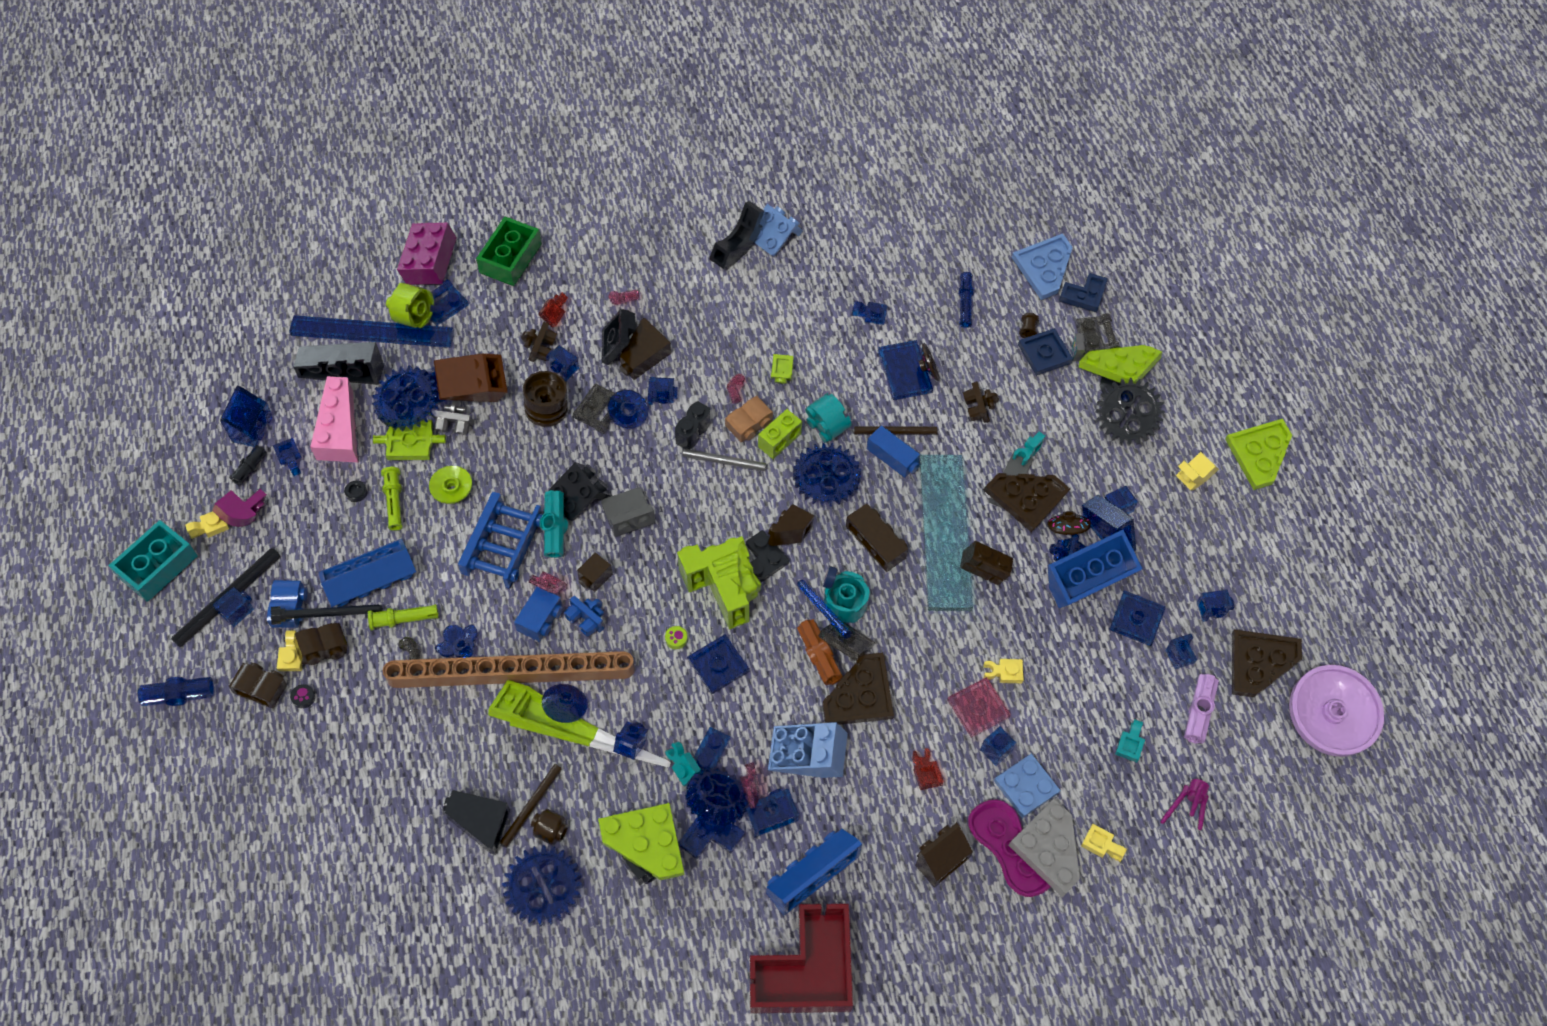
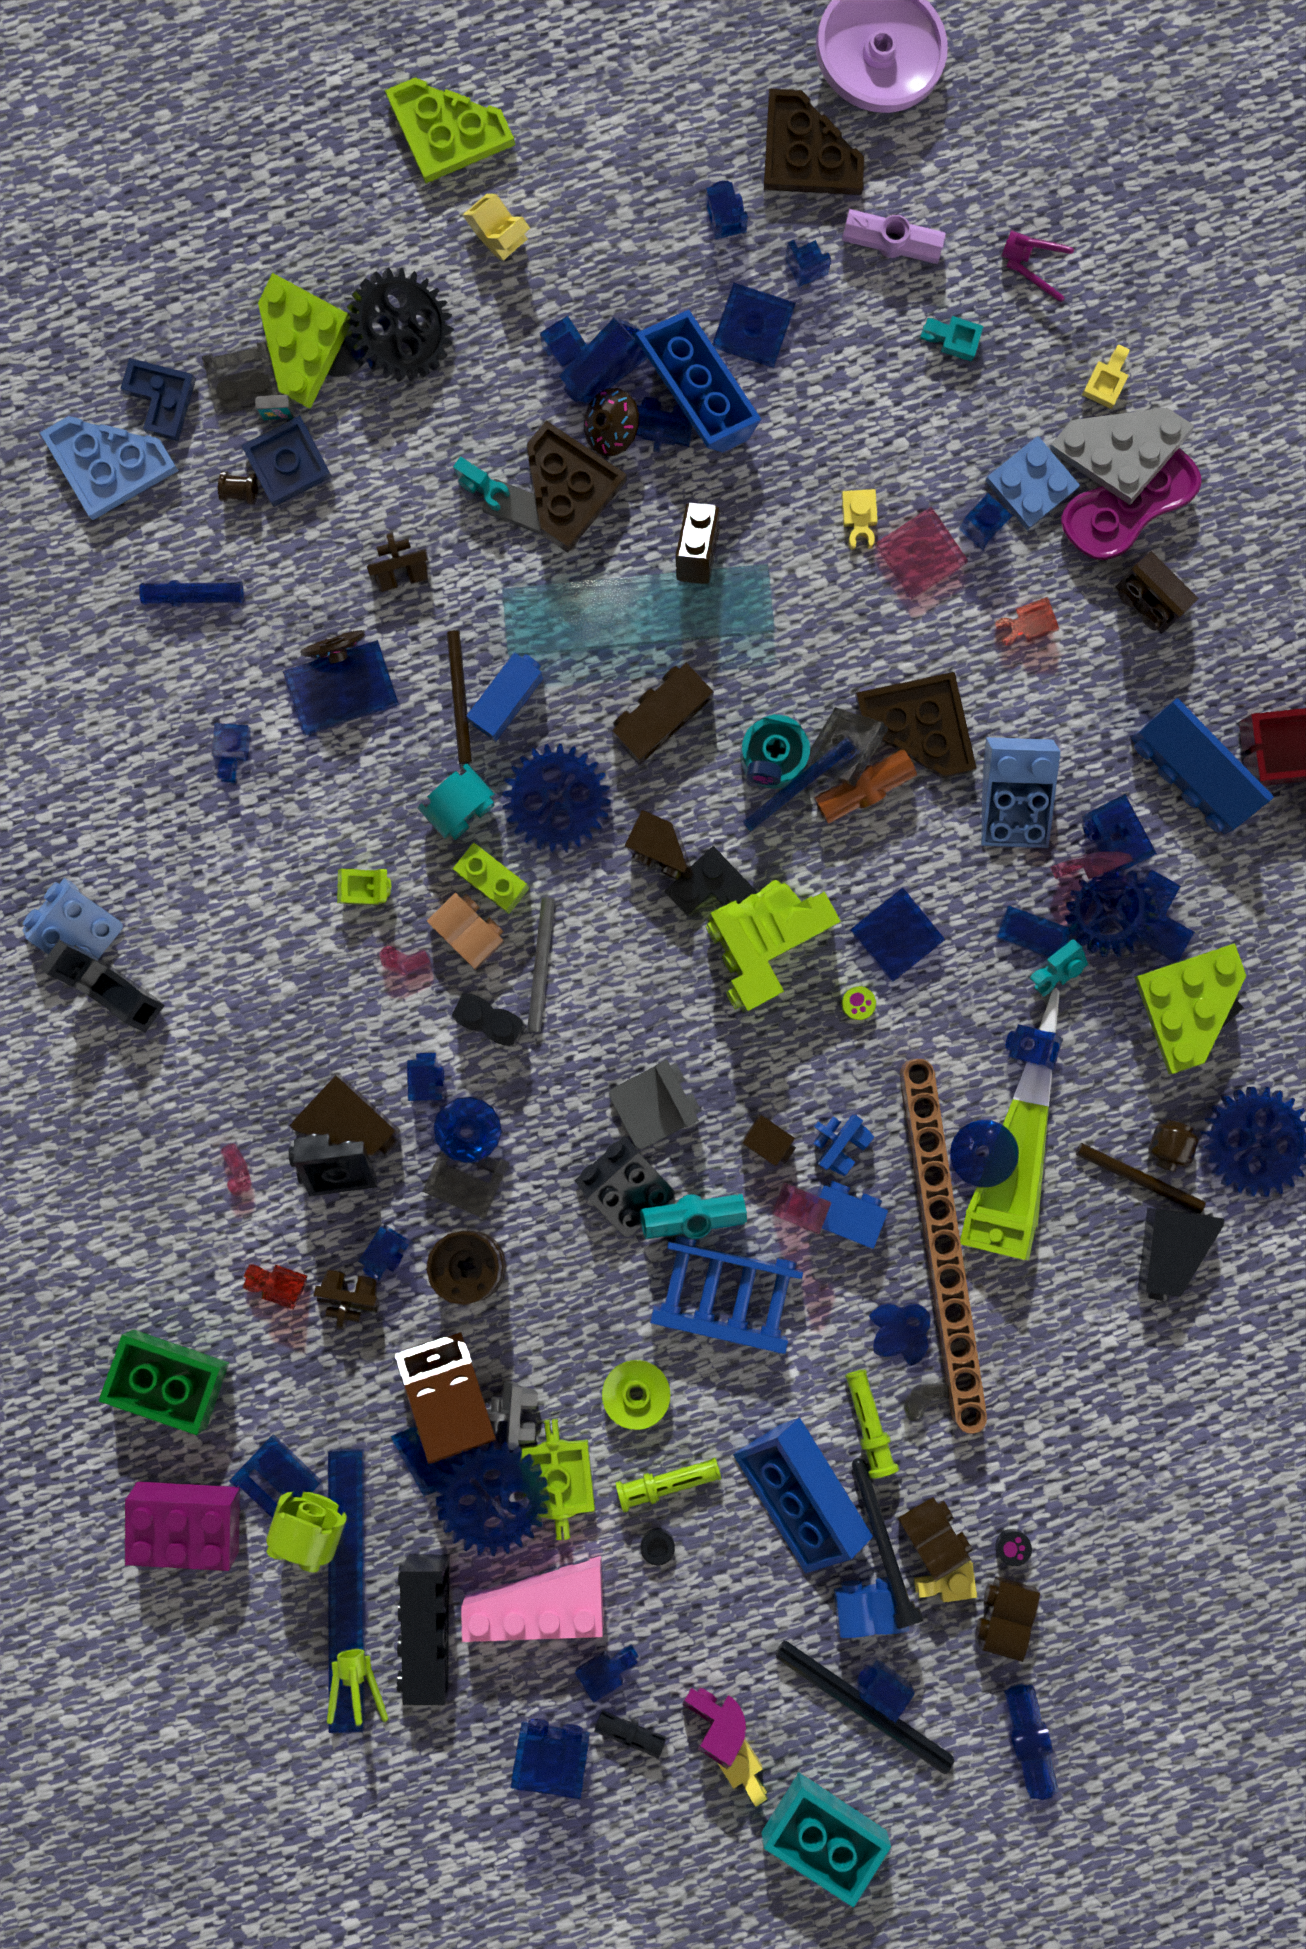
camera: 90 degrees left, 25 degrees up
(326, 325) = (351, 1668): none -> lime plant

